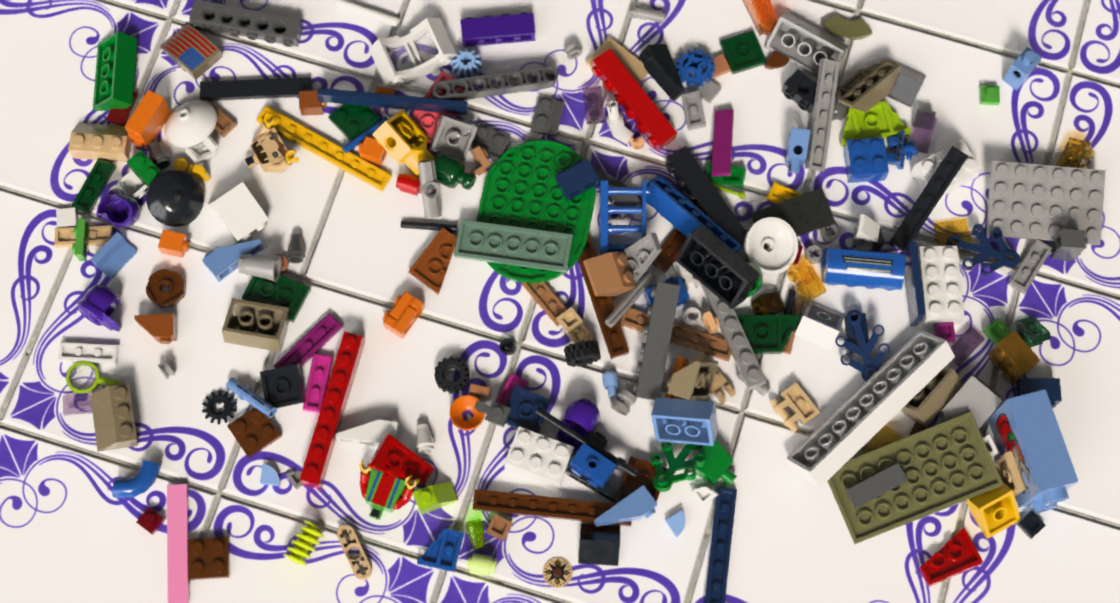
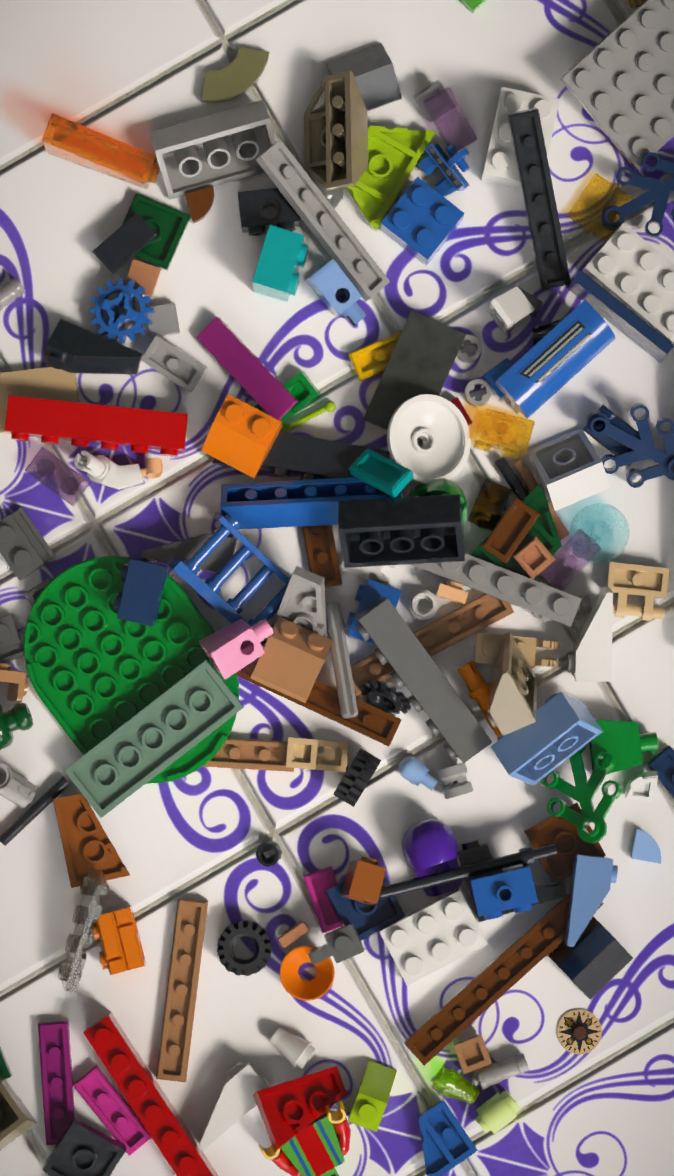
camera: 45 degrees left, 15 degrees up
(386, 294) = (83, 934): none -> clear smoke wing
(405, 365) = (182, 990): none -> medium nougat tile
(503, 549) = (500, 1071): none -> light grey piece
(536, 397) = (364, 881): none -> dark orange brick
(584, 238) = (236, 645): none -> bright pink torso
(630, 327) = (385, 697): none -> black gear
(691, 161) = (241, 436): none -> orange slope
(726, 43) = (124, 243): none -> black tile
(735, 234) = (381, 472): none -> teal tile
(749, 409) = (593, 647): none -> white slope
(764, 343) = (534, 557): none -> nougat tile
(766, 321) = (511, 530): none -> reddish brown tile
(779, 362) = (571, 560): none -> clear purple plate
(784, 113) = (279, 262): none -> teal brick
(801, 357) = (613, 523): none -> clear light blue plate

